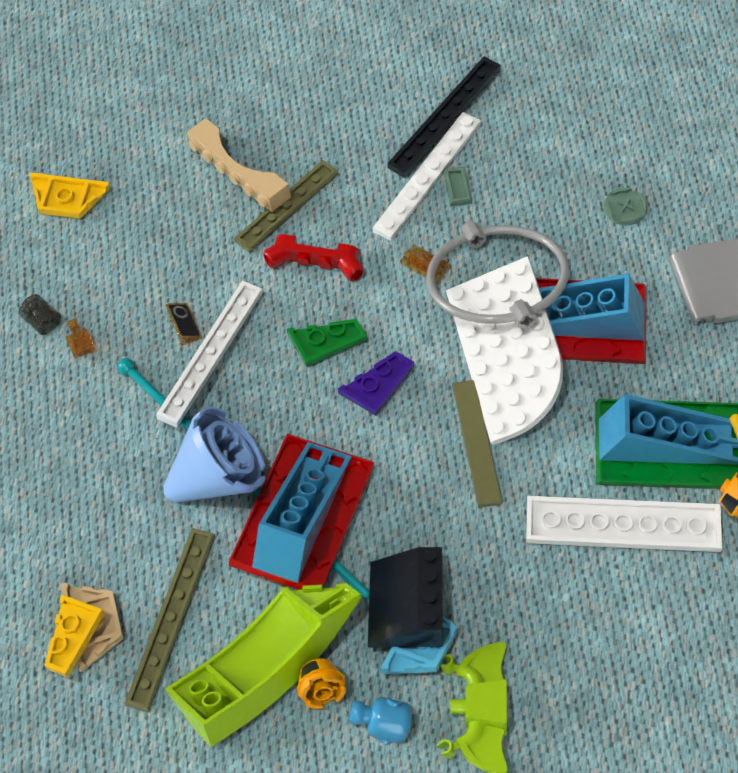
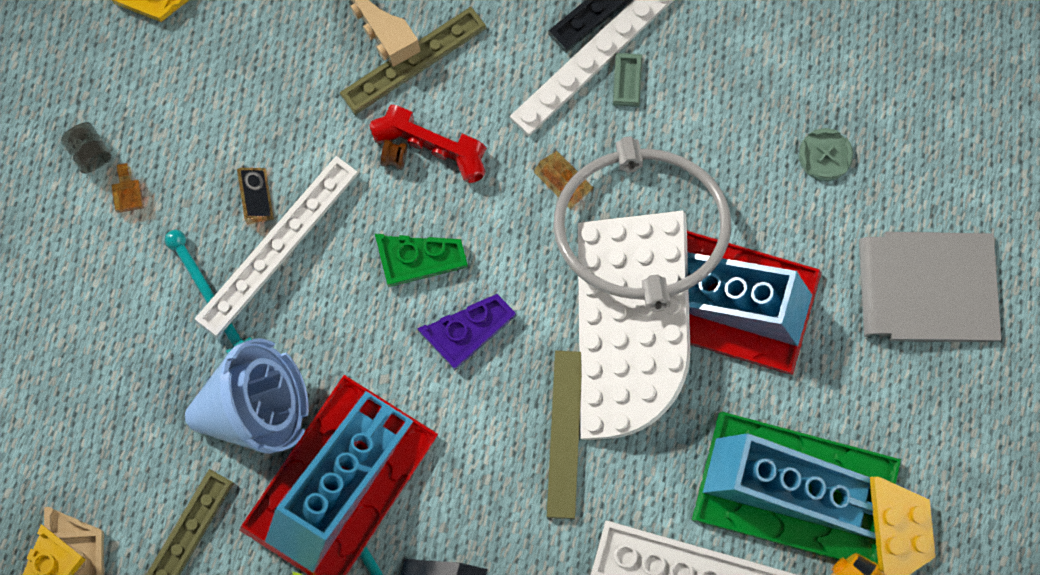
camera: 10 degrees right, 15 degrees up
(285, 271) = (391, 154): none -> reddish brown wheel

